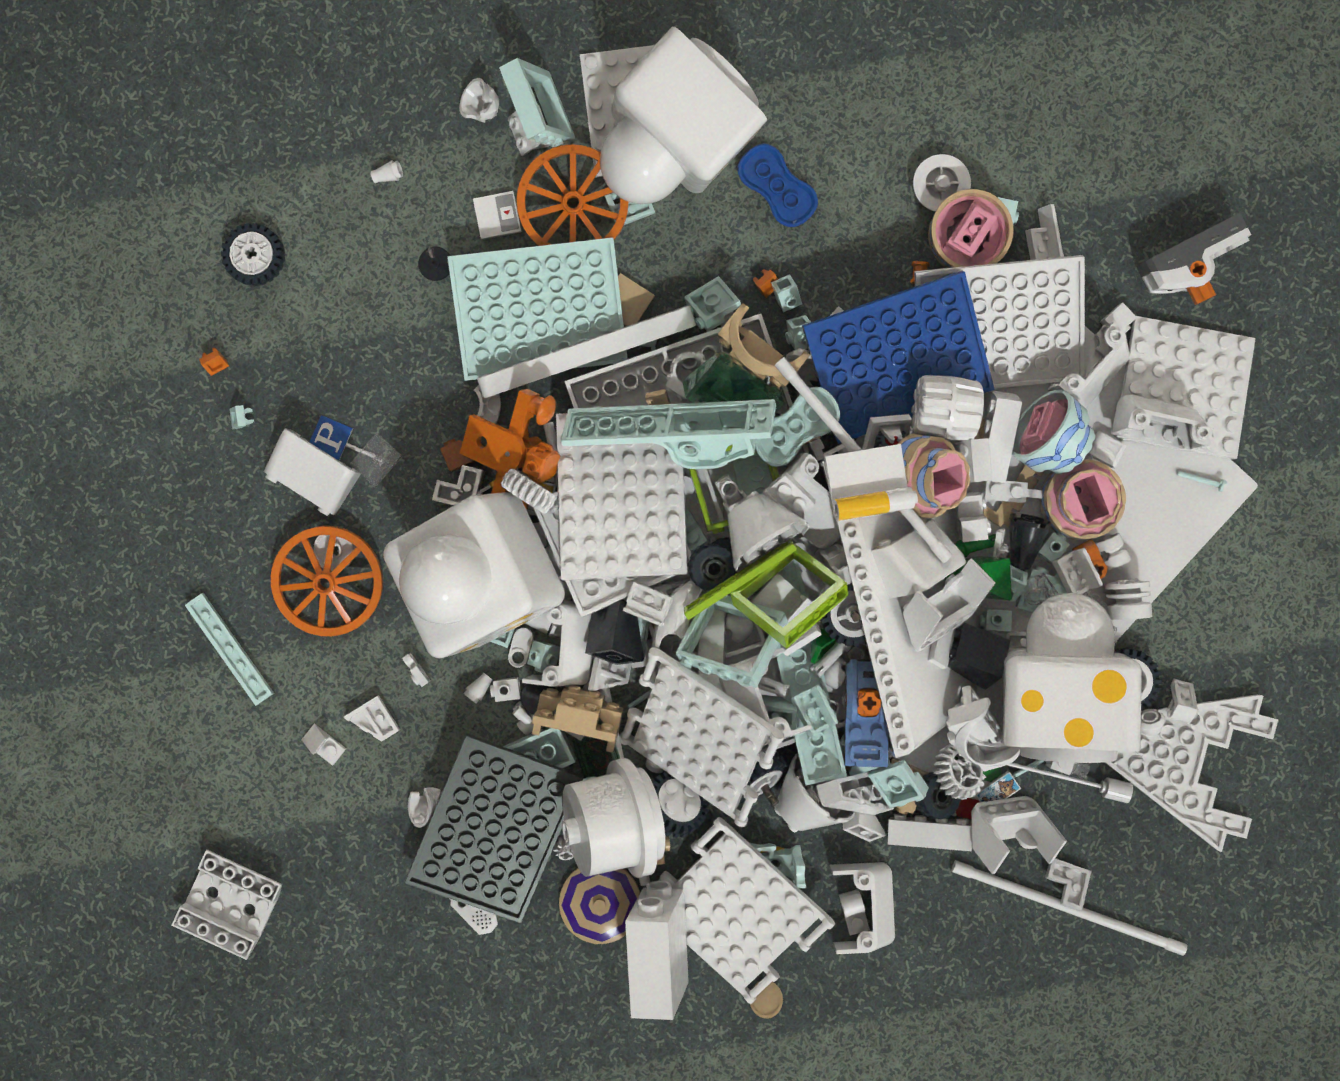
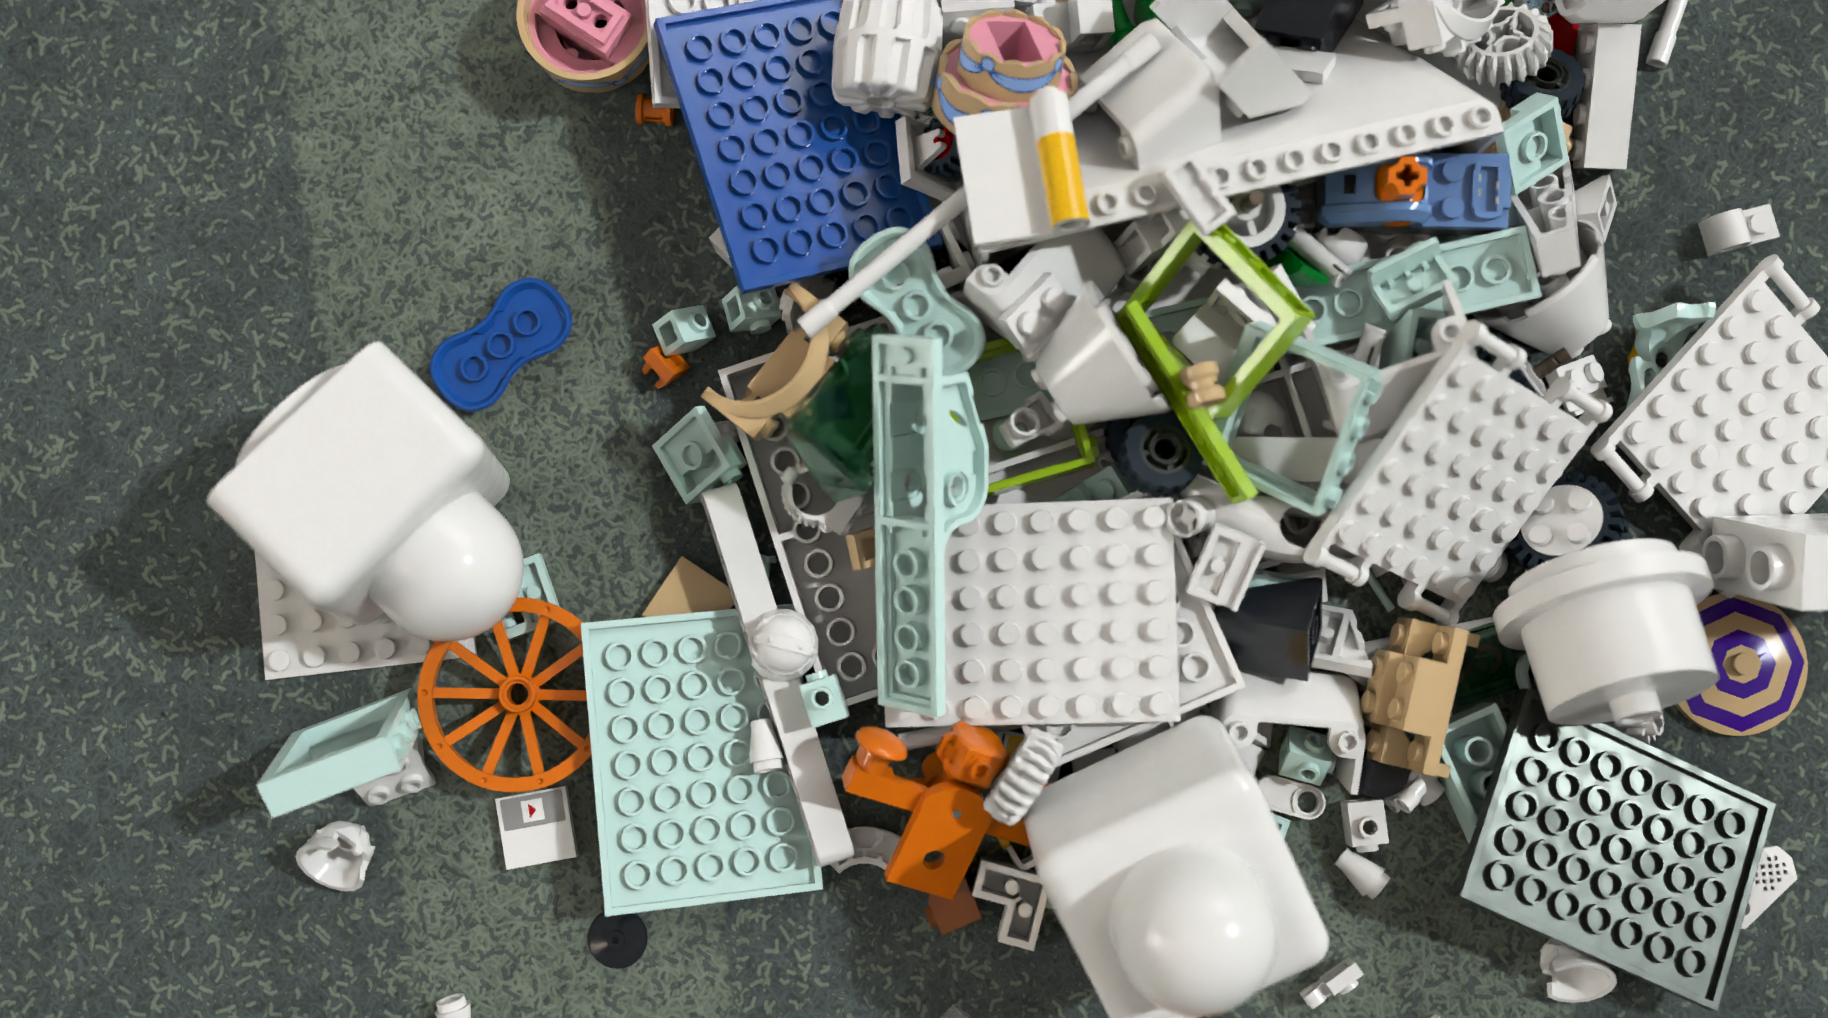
camera: 80 degrees left, 5 degrees down
(543, 345) = (764, 747): none -> white cone
(571, 378) = (823, 698): none -> light aqua brick
(602, 355) = (784, 645): none -> white helmet
(676, 584) = (1182, 518): none -> white wheel
(748, 586) = (1201, 380): none -> tan wheel
(761, 816) = (1588, 378): none -> white plate
(855, 582) = (1197, 193): none -> white plate
(878, 879) = (1685, 195): white windscreen -> none
(938, 179) = (501, 74): white wheel -> none

